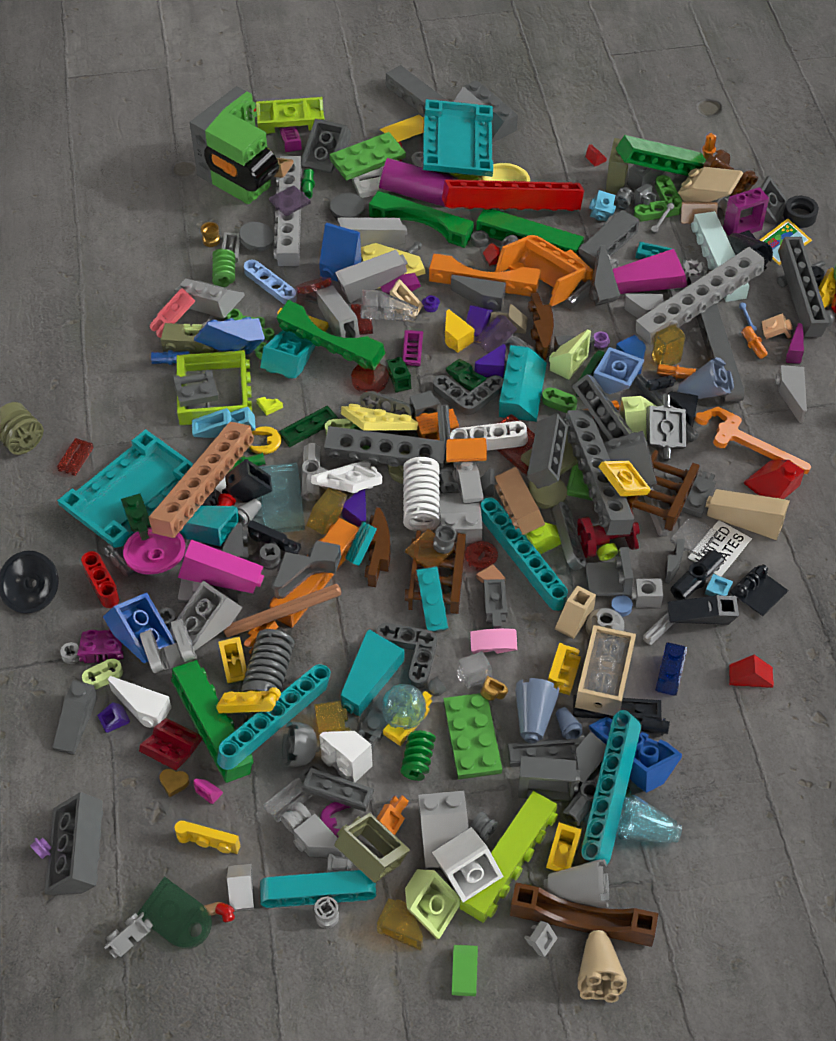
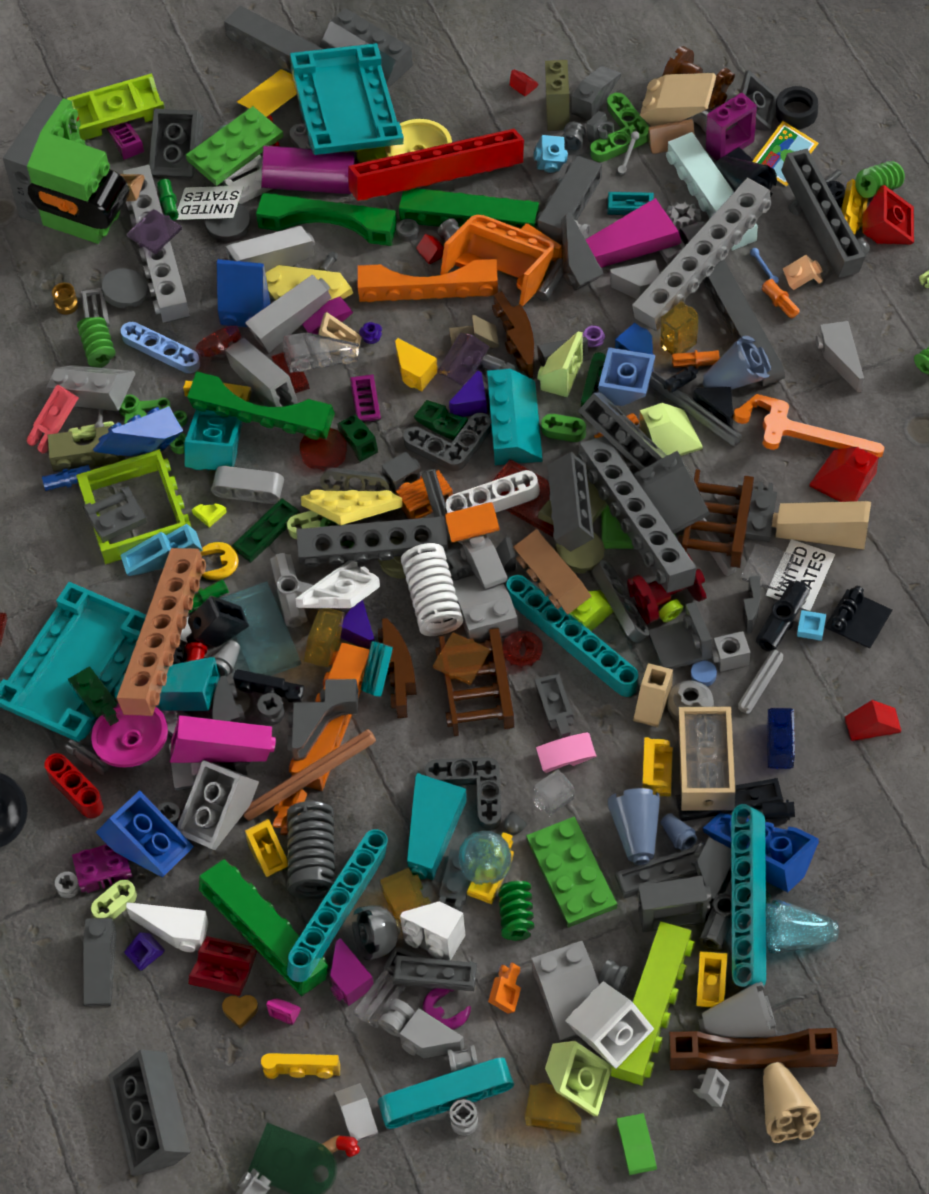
camera: 10 degrees left, 5 degrees up
(41, 847) = (111, 1124): medium lavender plate -> none
(171, 655) = (191, 859): light grey piece -> none
(248, 701) = (304, 895): yellow plate -> none
(267, 774) = (348, 975): none -> magenta slope
(304, 390) = (247, 485): none -> light grey beam
(337, 191) = (209, 202): none -> white sticker
(380, 837) = (503, 1020): olive window -> none
(432, 599) = (481, 718): teal plate -> none
(444, 539) = (476, 641): dark grey wheel -> none
(478, 318) = (436, 340): dark purple slope -> none
(480, 291) = (430, 304): dark grey slope -> none
(489, 573) = (539, 670): nougat tile -> none
(493, 689) = (581, 811): pearl gold tile -> none
(624, 478) = (672, 518): yellow plate -> none
(659, 155) = (608, 72): green brick -> none
(666, 427) = (702, 436): plate -> none
(704, 610) = (801, 658): black slope -> none
(709, 147) = (664, 45): orange axle -> none
(796, 346) = (833, 297): magenta slope -> none

